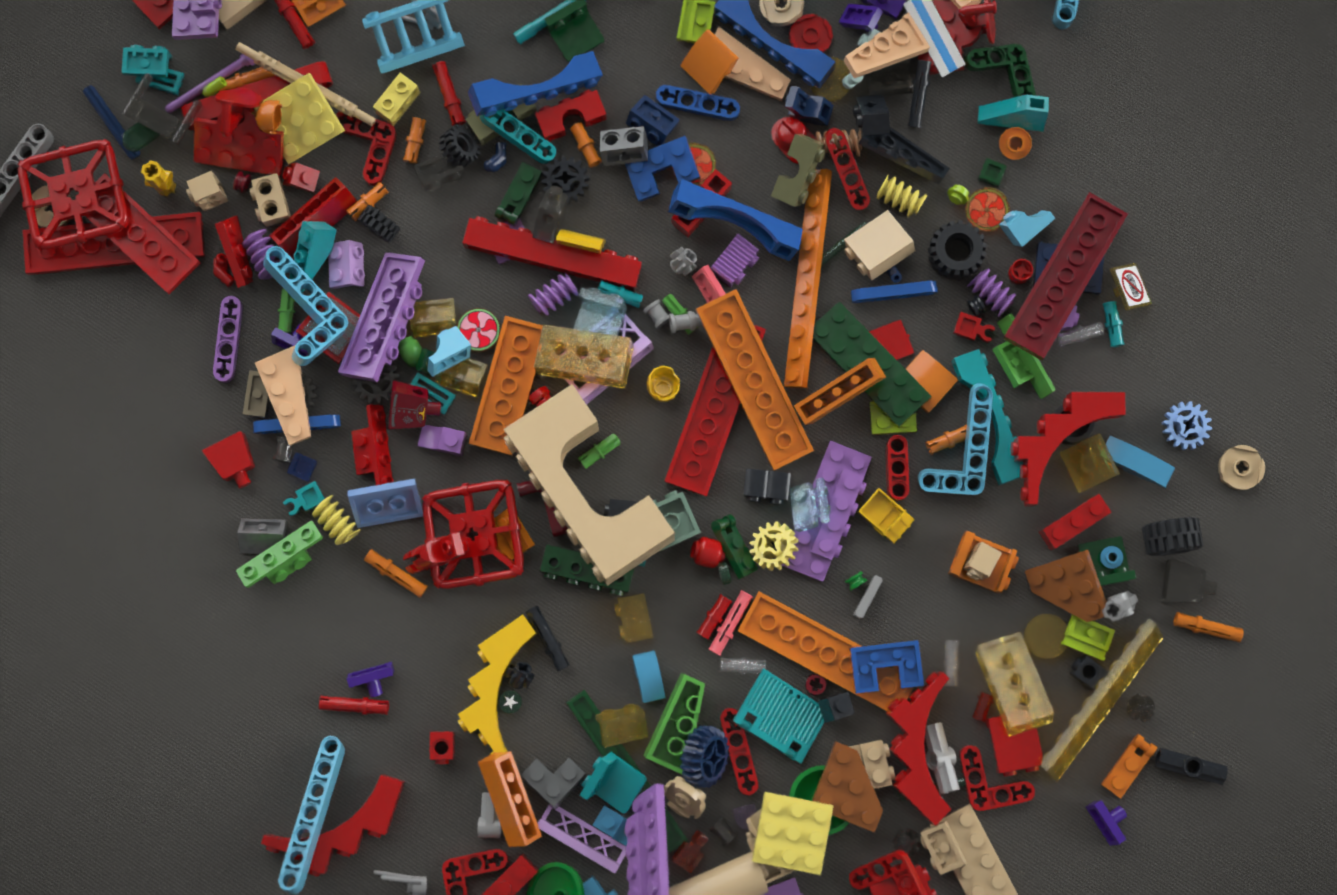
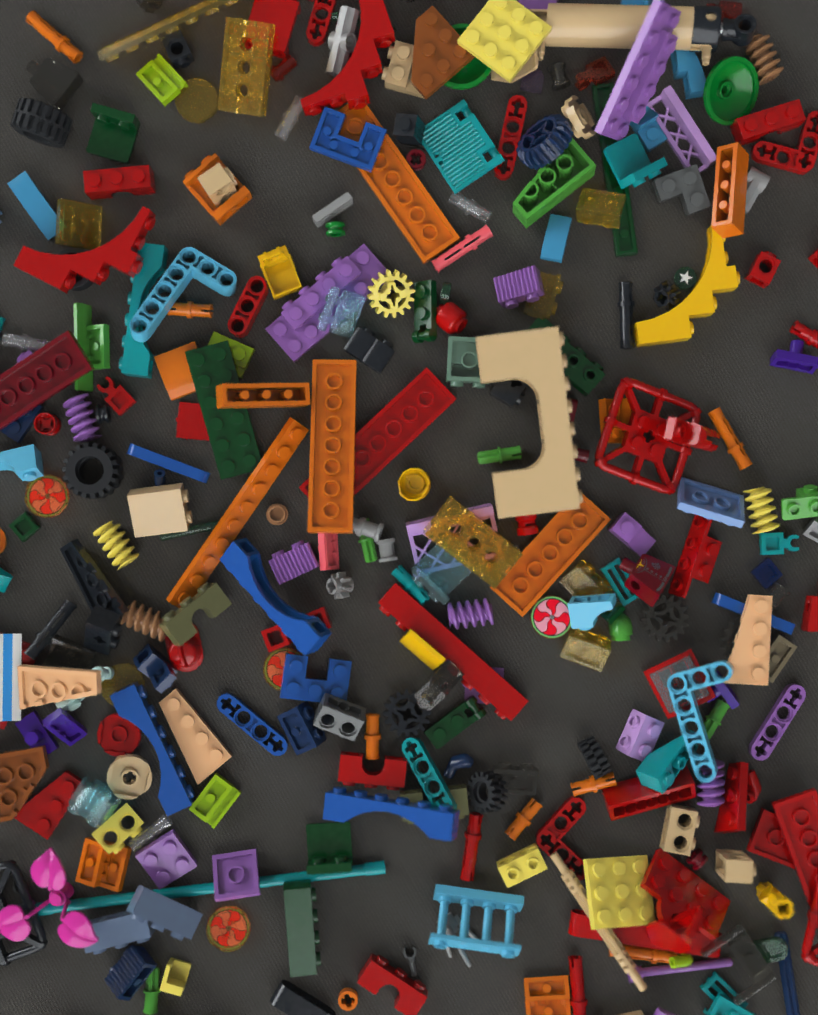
camera: 150 degrees left, 5 degrees up
(269, 116) = (648, 906): orange hair -> none
(300, 177) = (642, 837): bracket -> none
(383, 317) = (632, 668): medium lavender plate -> none
(660, 611) = (519, 287): none -> medium lavender brick
(709, 61) = (222, 755): orange slope -> none
(714, 616) = (473, 260): red pin -> none
(772, 296) = (277, 514): none -> medium nougat plate
(844, 170) = (153, 593): red beam -> none
(958, 194) = (65, 521): lime plate -> none
(1070, 585) = (151, 126): dark orange plate -> none
(1105, 560) = (108, 140): dark azure plate -> none
(1120, 605) = (119, 85): light grey piece -> none

